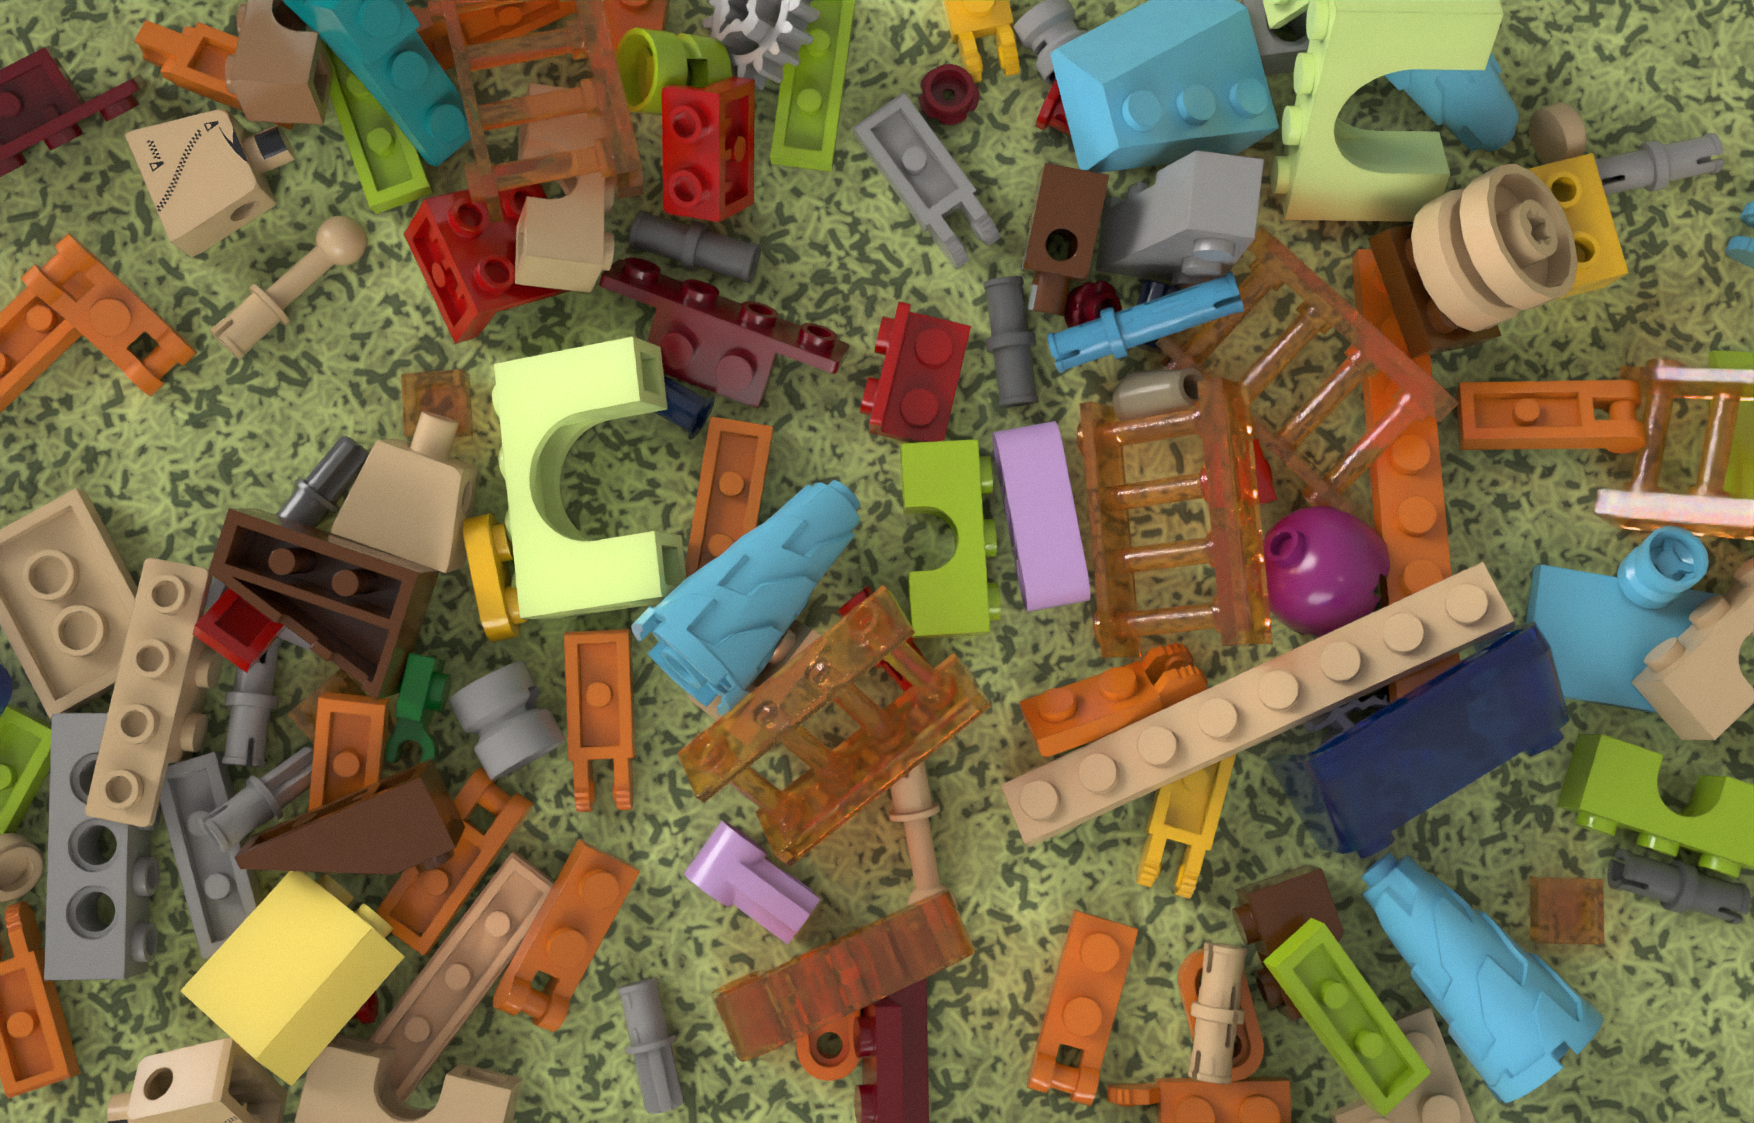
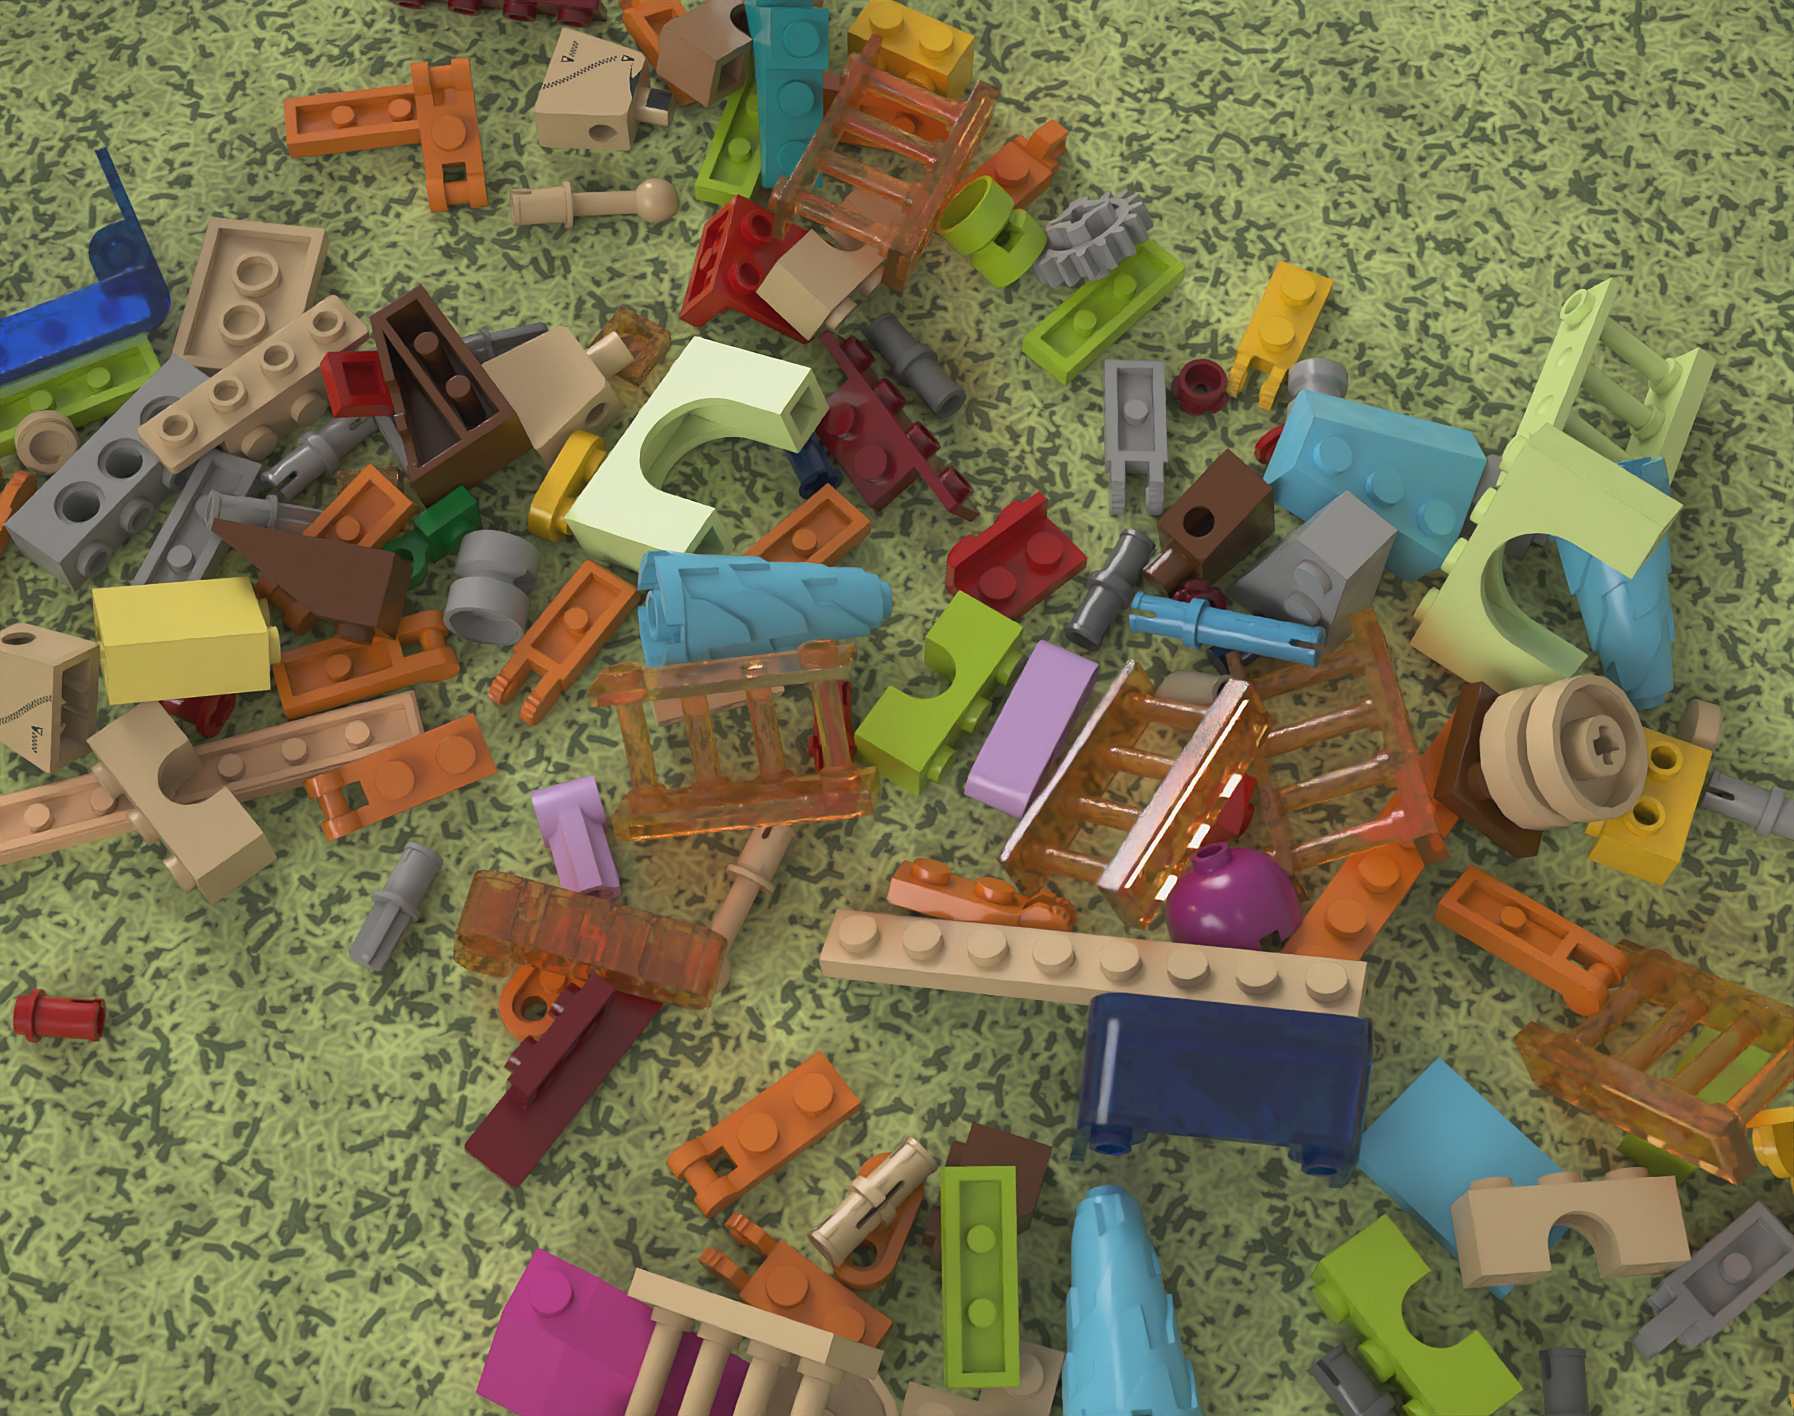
camera: 40 degrees right, 20 degrees down
(708, 149) = (979, 295): red bracket -> none
(1187, 814) = (975, 1040): yellow hinge -> none
(1566, 910) = (1251, 1359): clear orange plate -> none
(1662, 567) = (1543, 1119): medium azure wheel -> none

